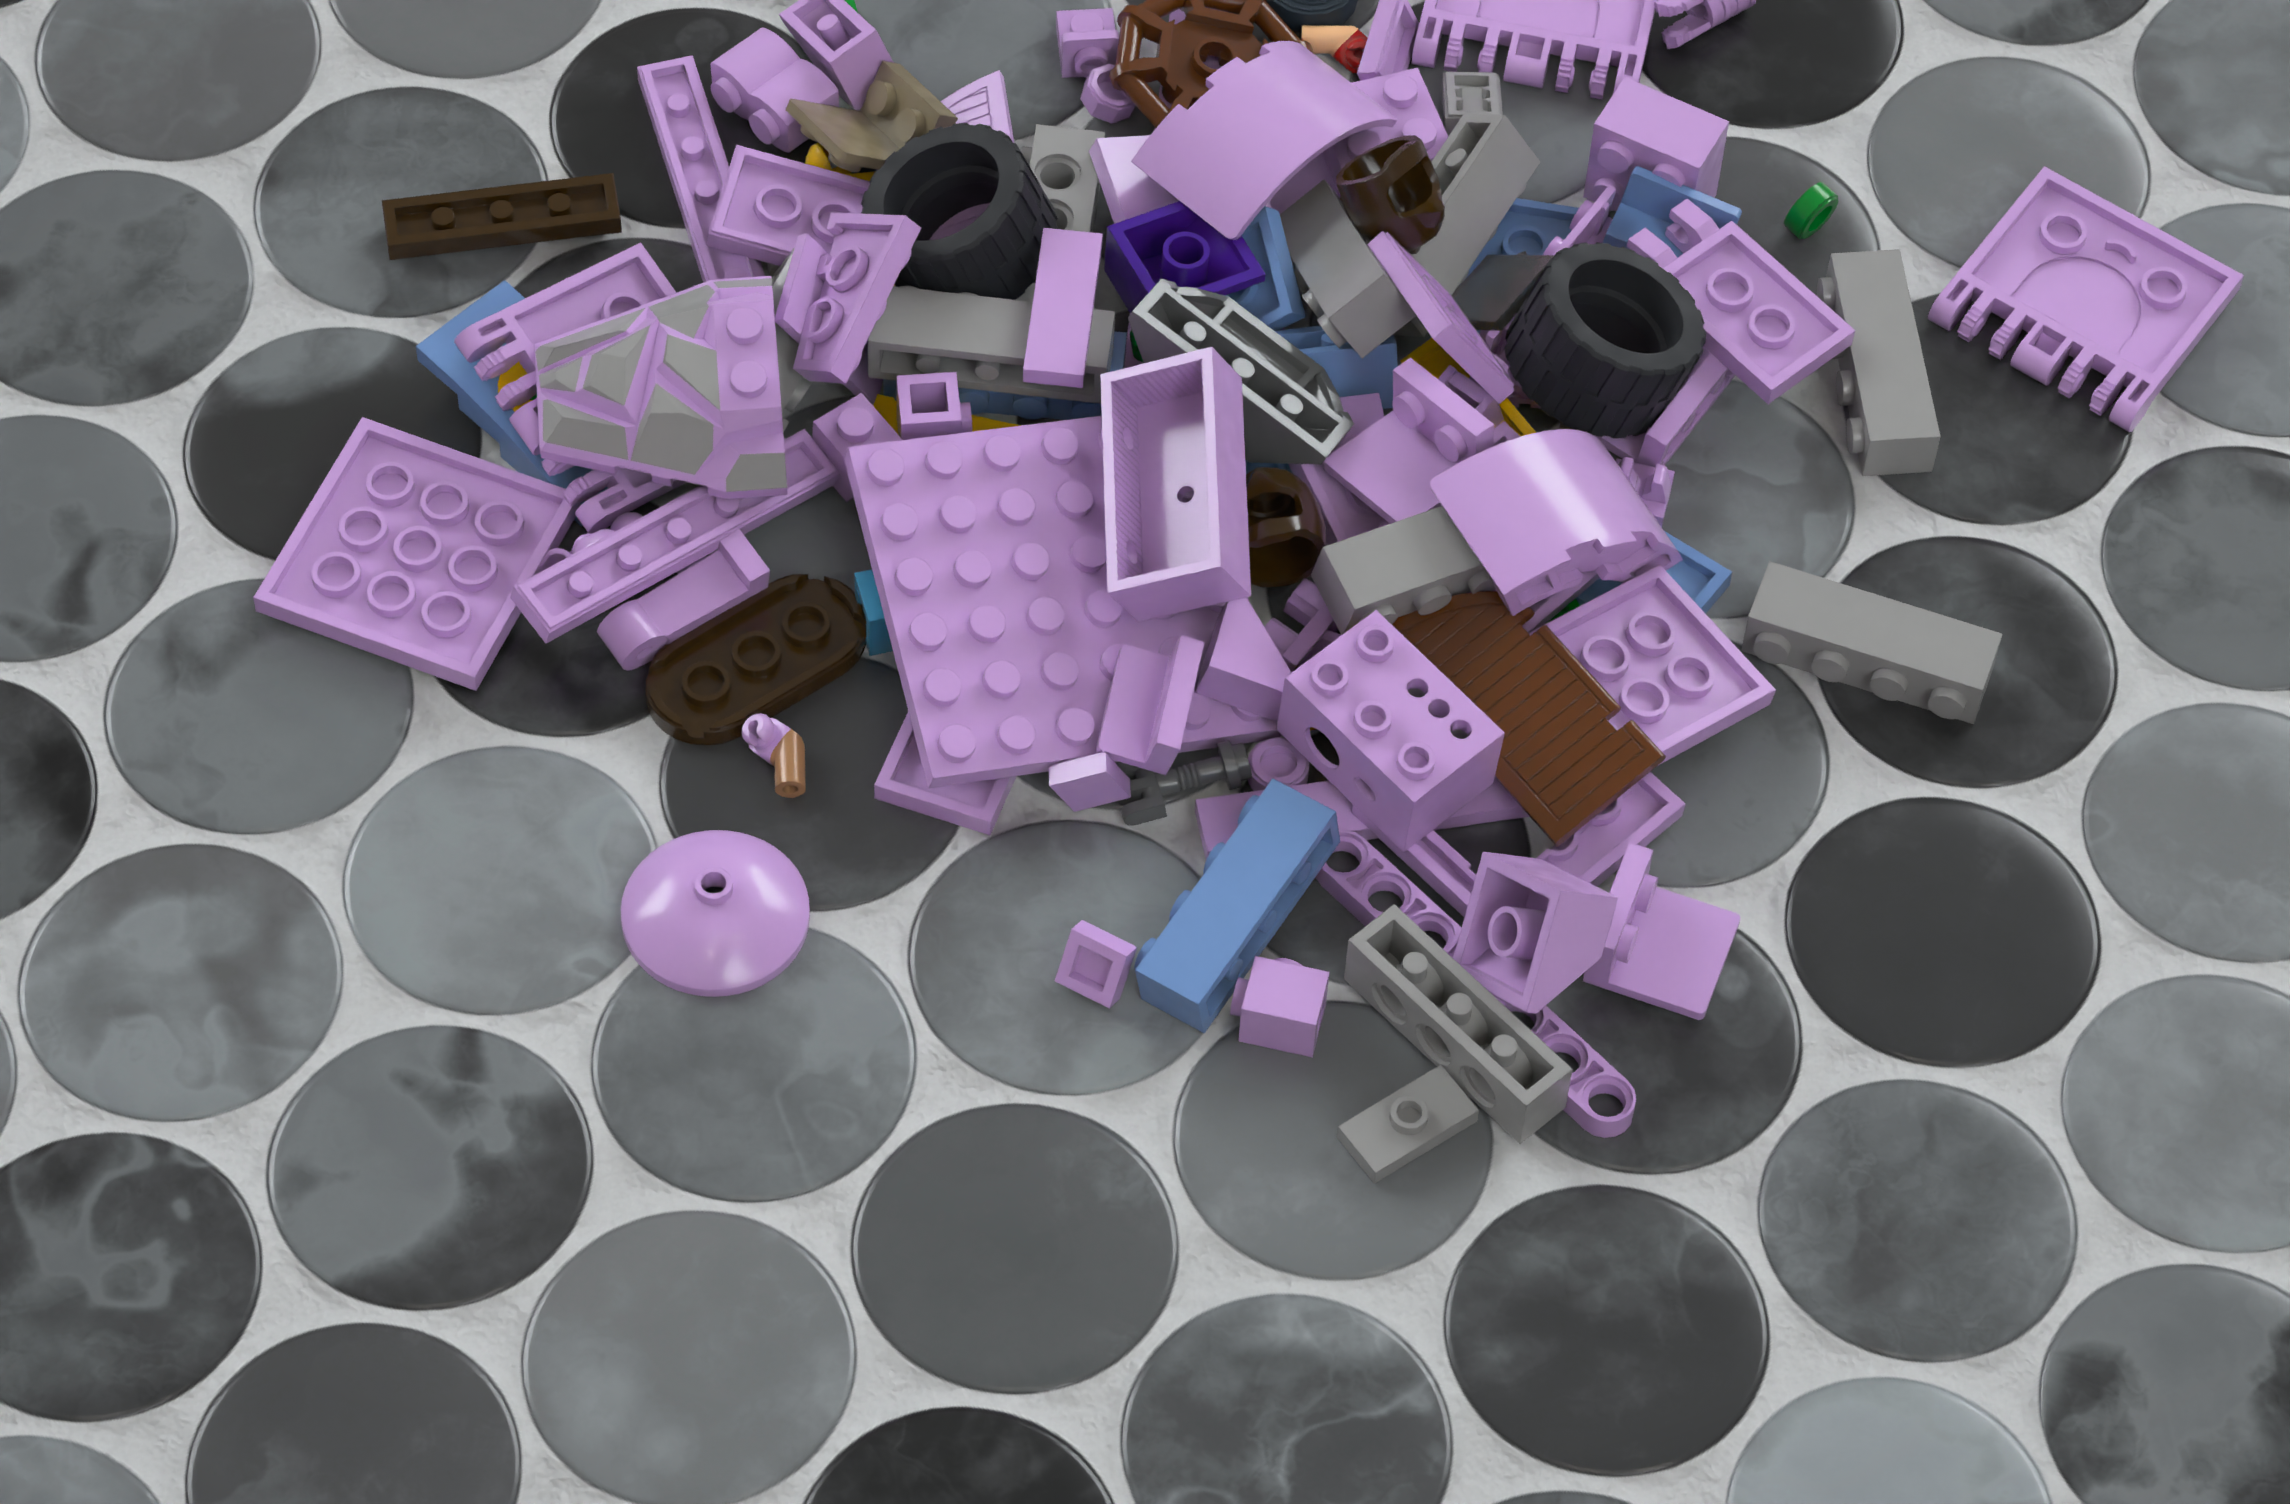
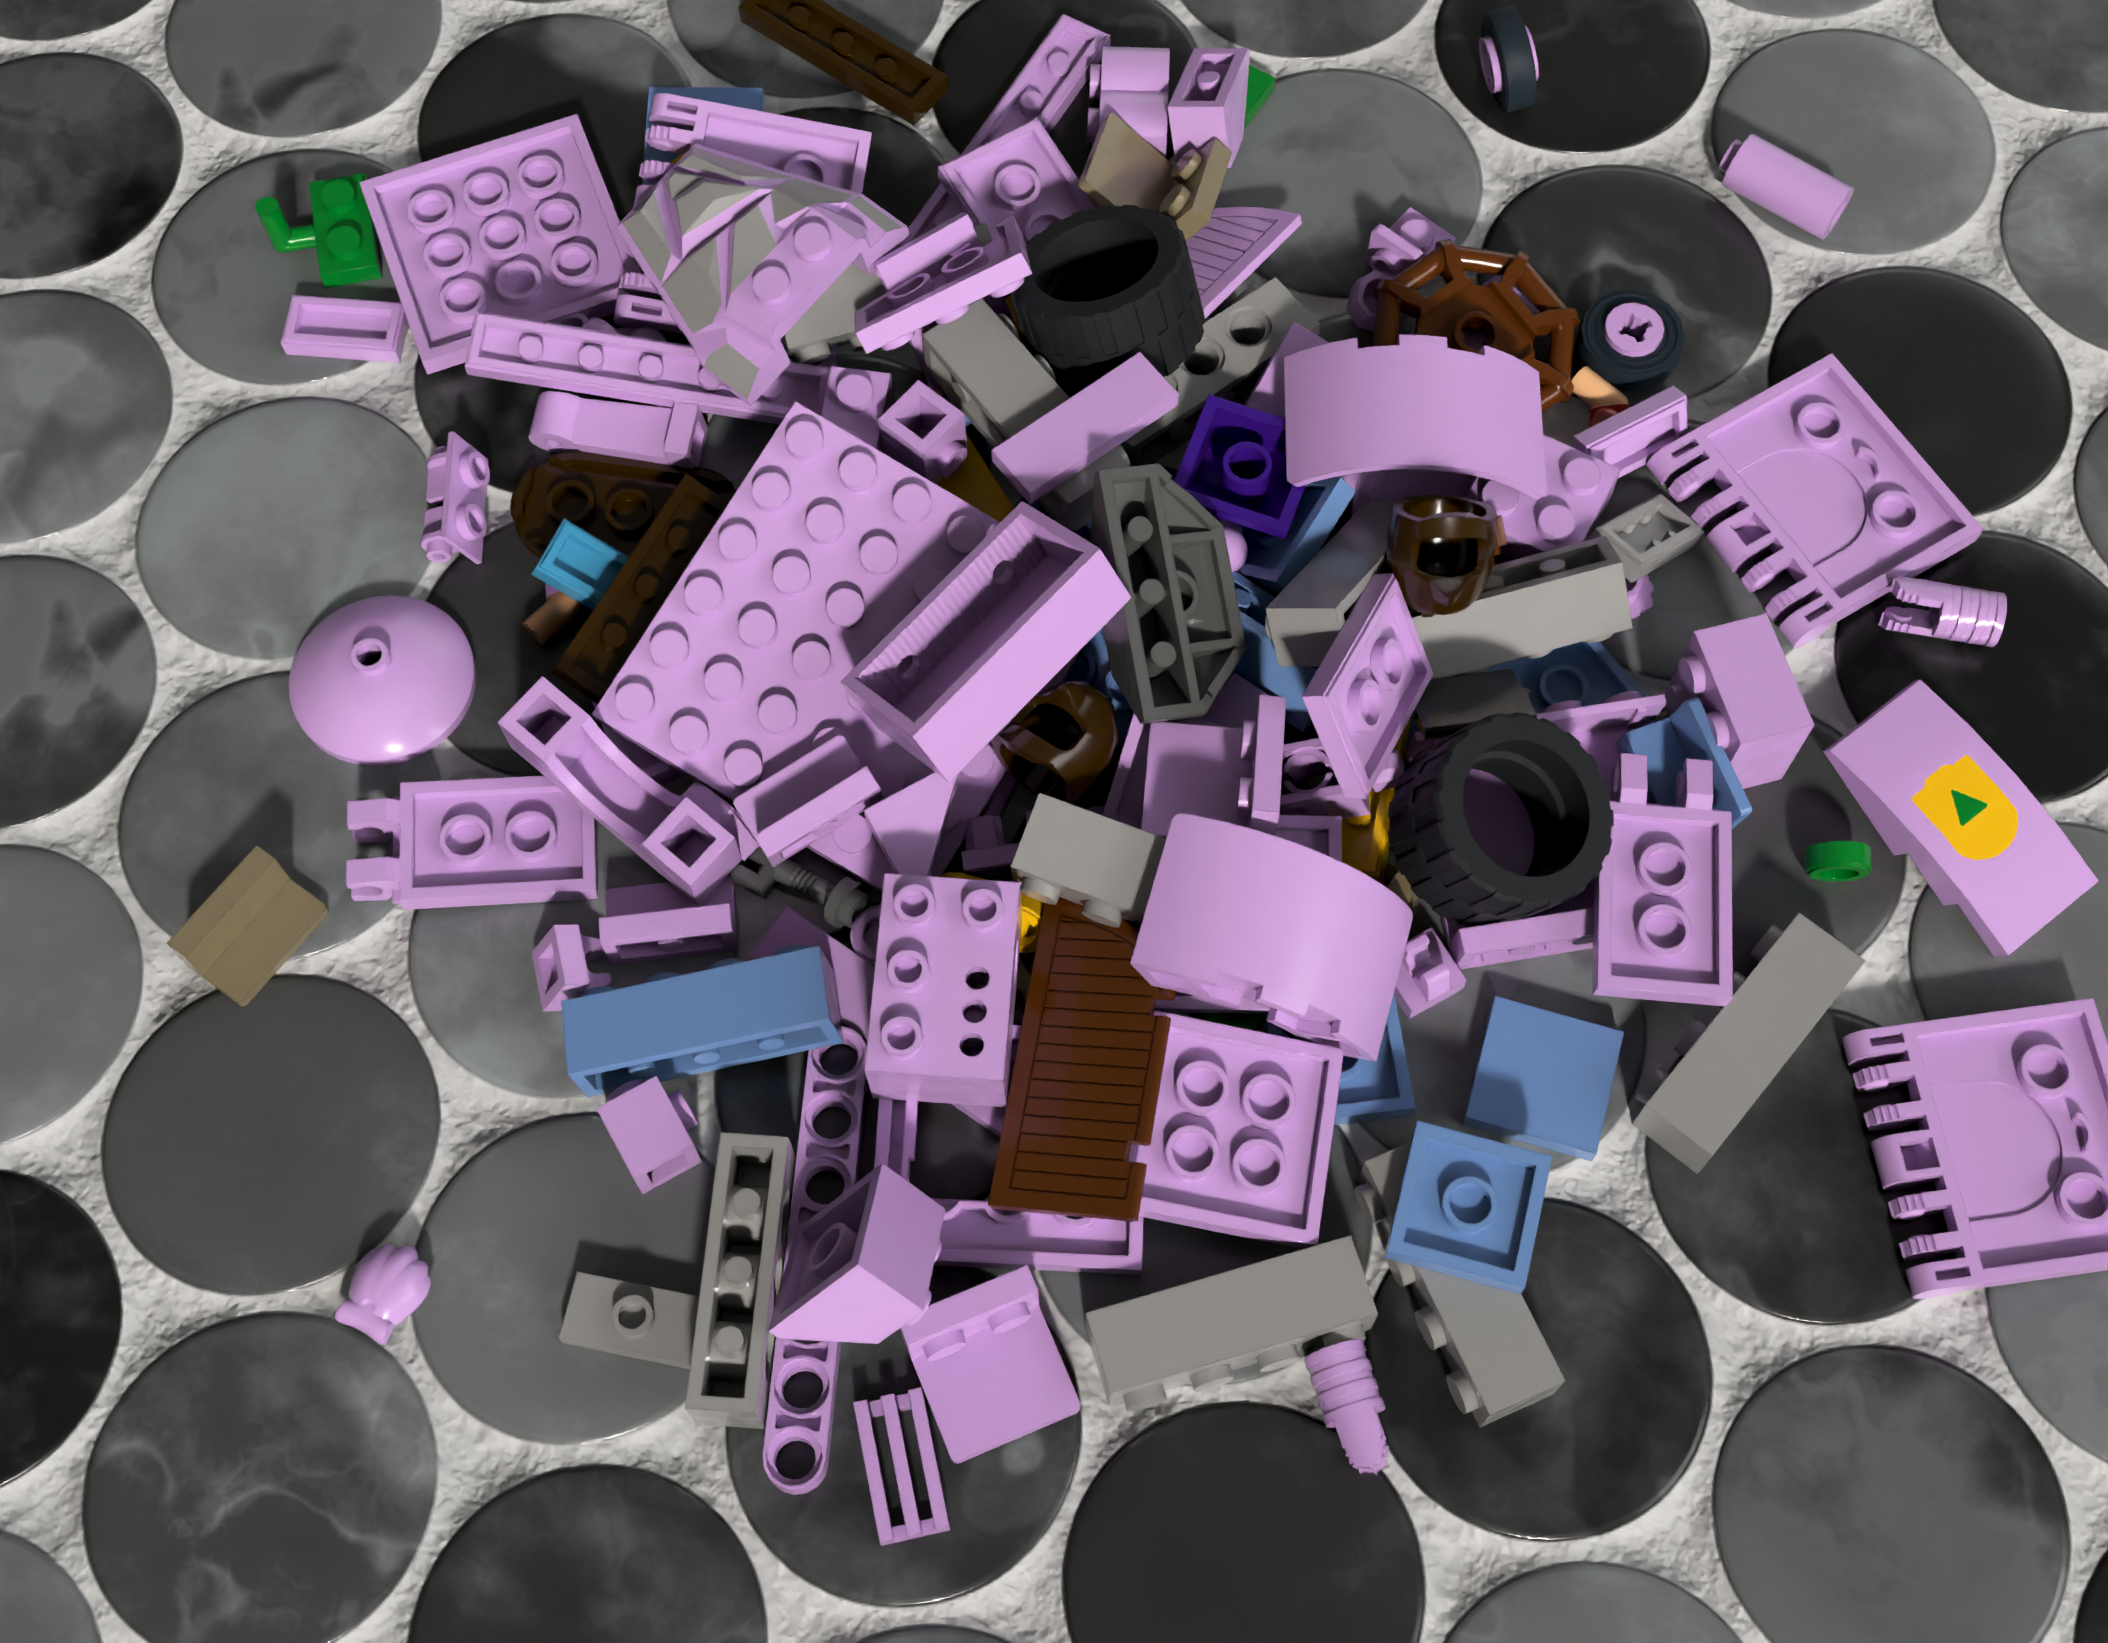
camera: 50 degrees right, 10 degrees up
(270, 646) = (340, 231): none -> green plate
(367, 712) = (345, 328): none -> lavender tile
(638, 766) = (459, 481): none -> lavender hinge
(802, 706) = (579, 564): none -> dark azure tile
(843, 1137) = (248, 927): none -> dark tan panel
(853, 682) = (639, 589): none -> dark brown plate
(931, 945) = (474, 844): none -> lavender tile
(1080, 812) = (594, 773): none -> lavender arch
(1125, 876) = (665, 924): none -> lavender panel
(1226, 1254) = (384, 1291): none -> lavender animal
(1677, 1041) = (889, 1406): none -> lavender tile
(1770, 788) = (1229, 1323): none -> light grey brick
(1783, 492) = (1543, 1078): none -> medium blue tile
(1840, 584) = (1468, 1207): none -> medium blue tile
(1851, 121) = (1960, 817): none -> lavender slope
(1894, 769) = (1350, 1402): none -> lavender hinge

